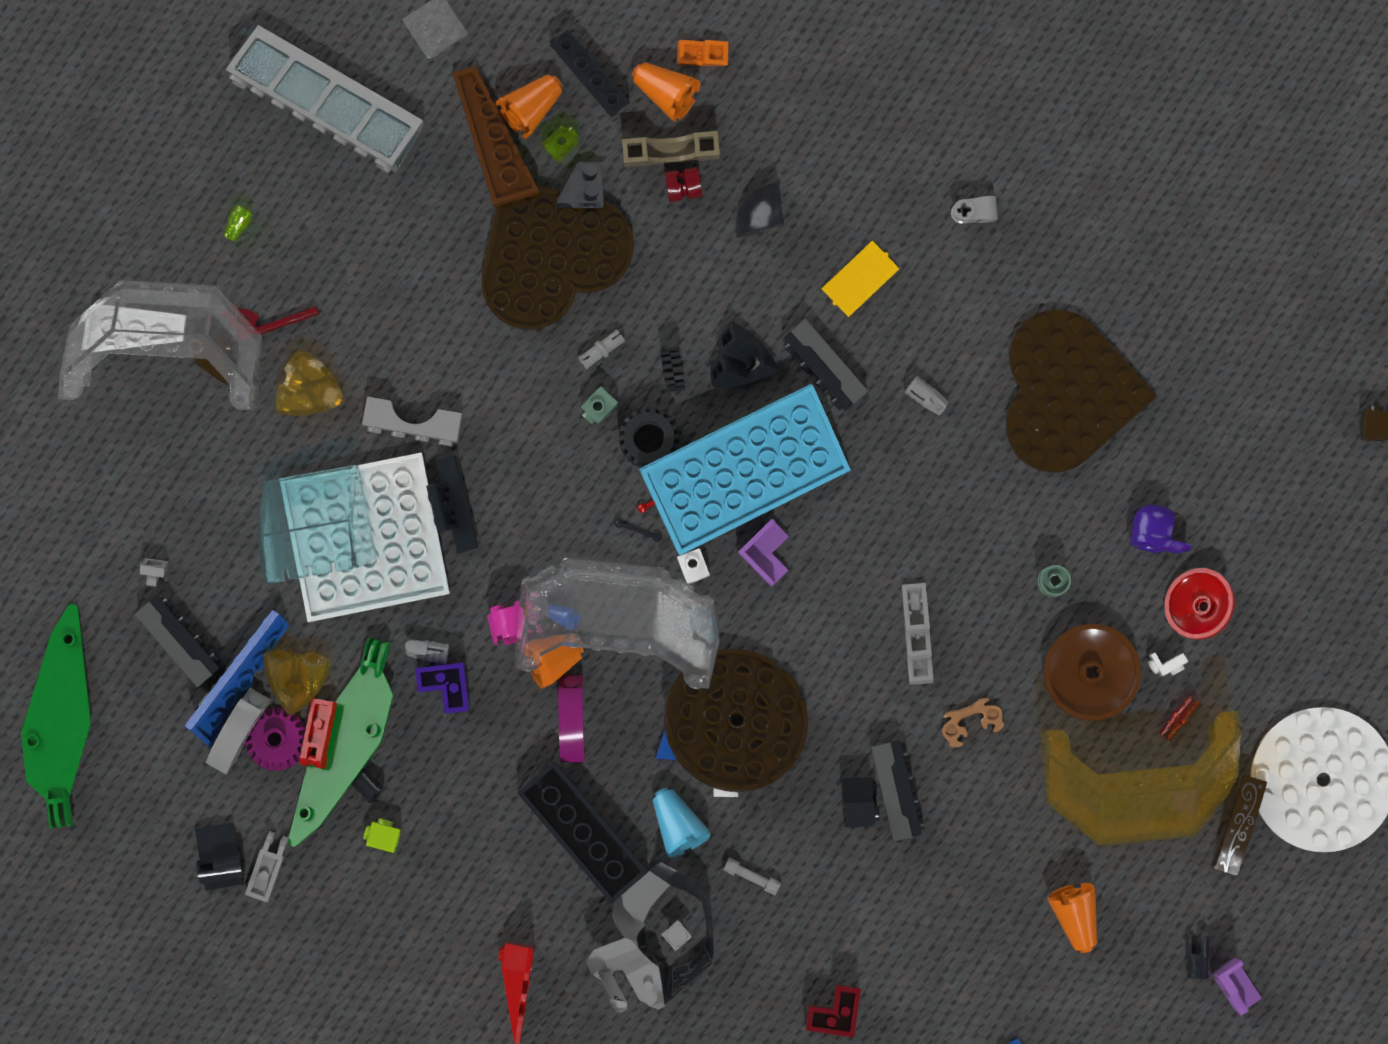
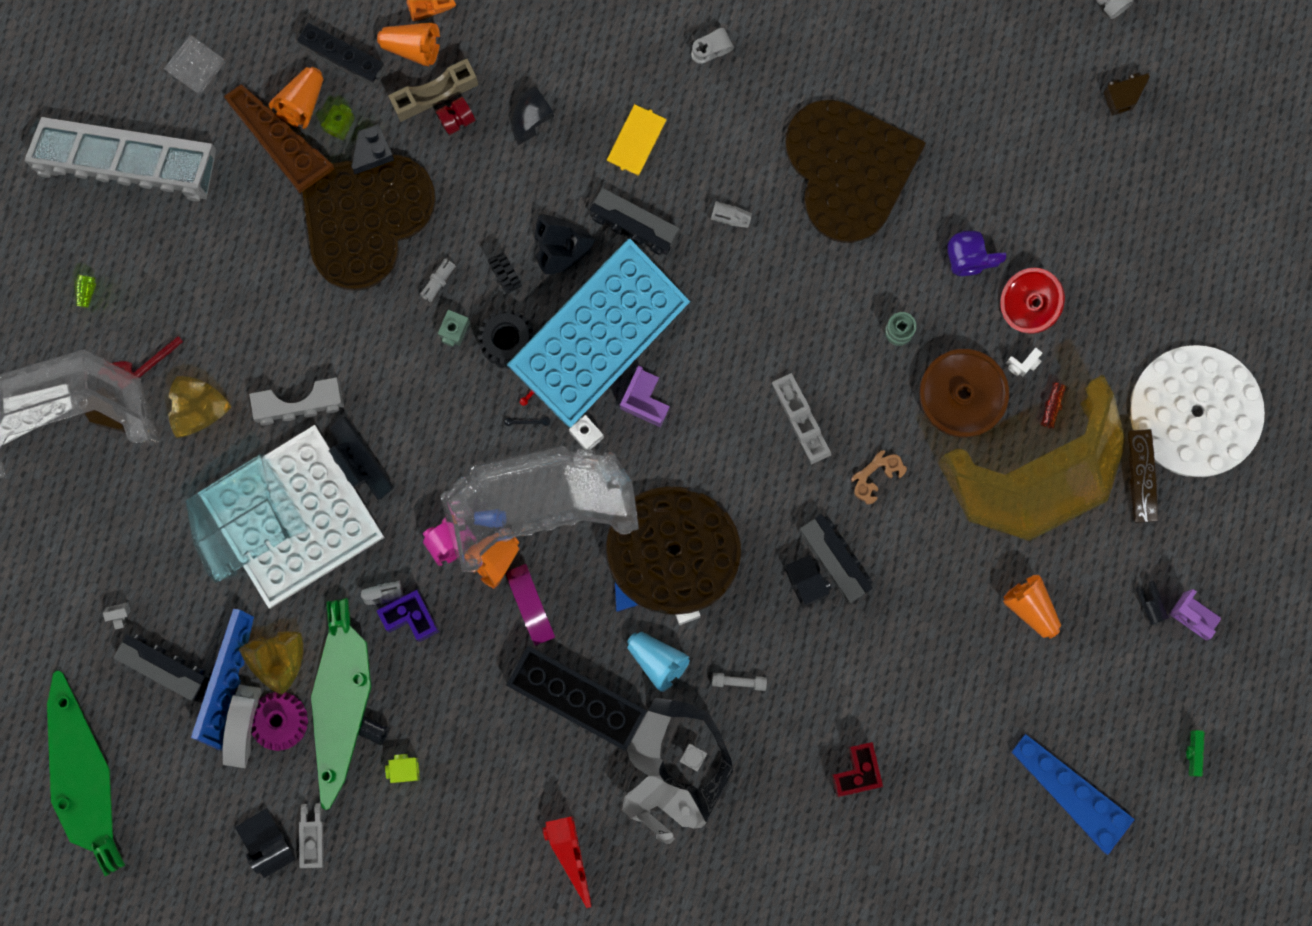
camera: 15 degrees left, 5 degrees down
(318, 733) = (313, 701): red plate -> none

